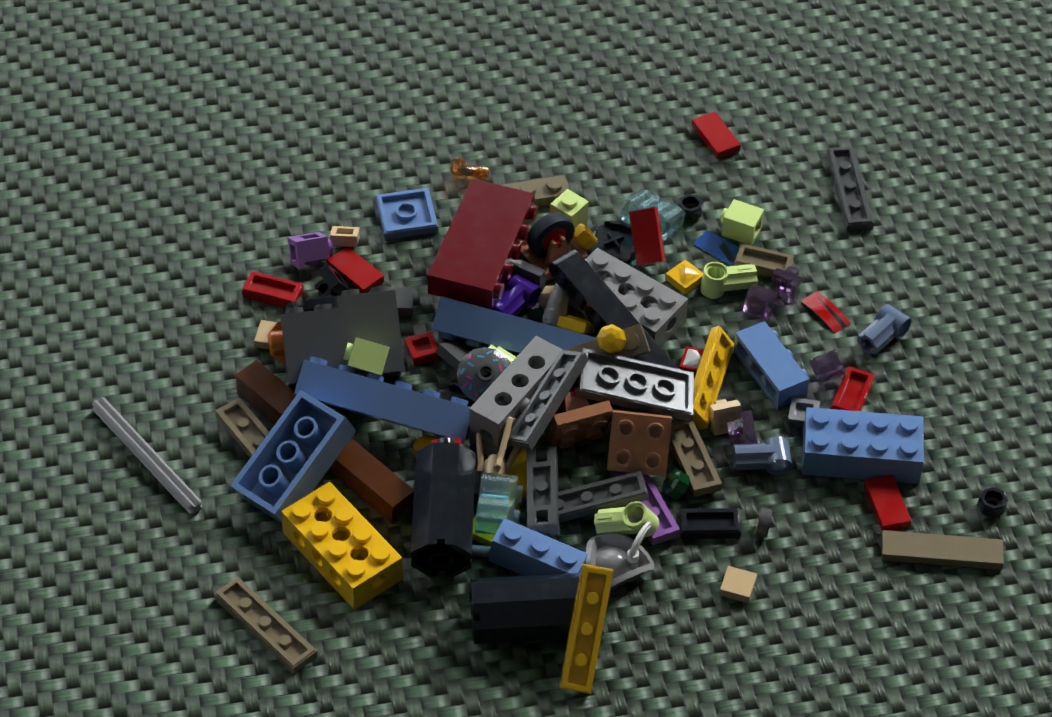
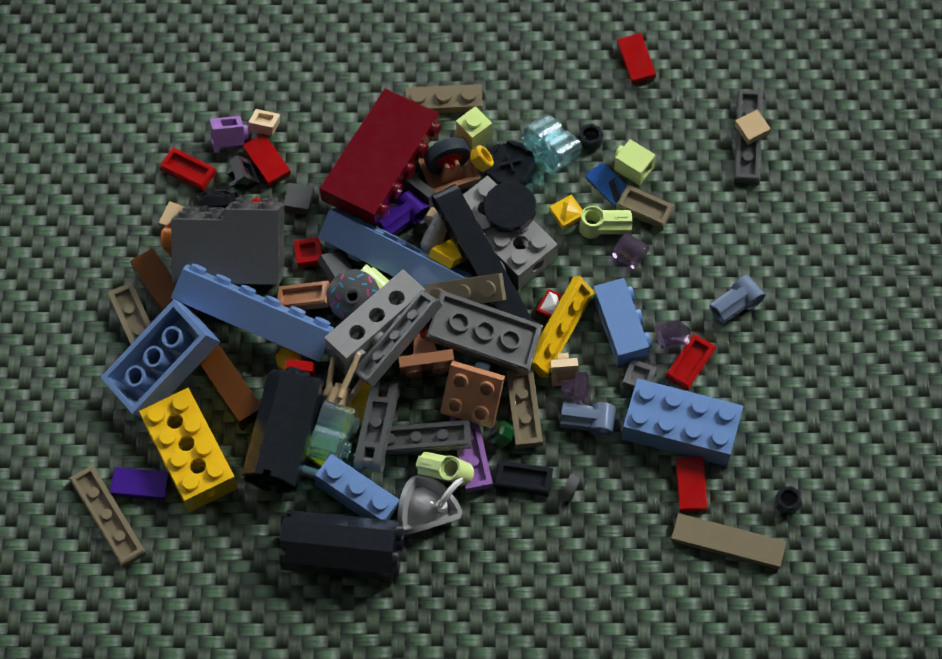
camera: 15 degrees right, 15 degrees up
(147, 455) = (40, 327): light grey axle -> none
(294, 588) = (140, 483): none -> dark purple tile
(366, 356) = (242, 270): yellowish green brick -> none
(406, 213) = (327, 104): medium blue tile -> none
(441, 381) = (304, 296): none -> nougat tile
(461, 169) = (398, 68): clear orange arm -> none
(586, 628) = (377, 578): yellow tile -> none
(611, 339) = (469, 285): yellow tile -> none
(630, 268) = (510, 206): none -> black tile
(647, 236) = (538, 167): red tile -> none
(738, 584) = (533, 546): tan tile -> none
(786, 283) = (657, 236): clear purple tile -> none
(826, 311) = (690, 268): red sticker -> none
(853, 176) = (752, 127): none -> tan tile

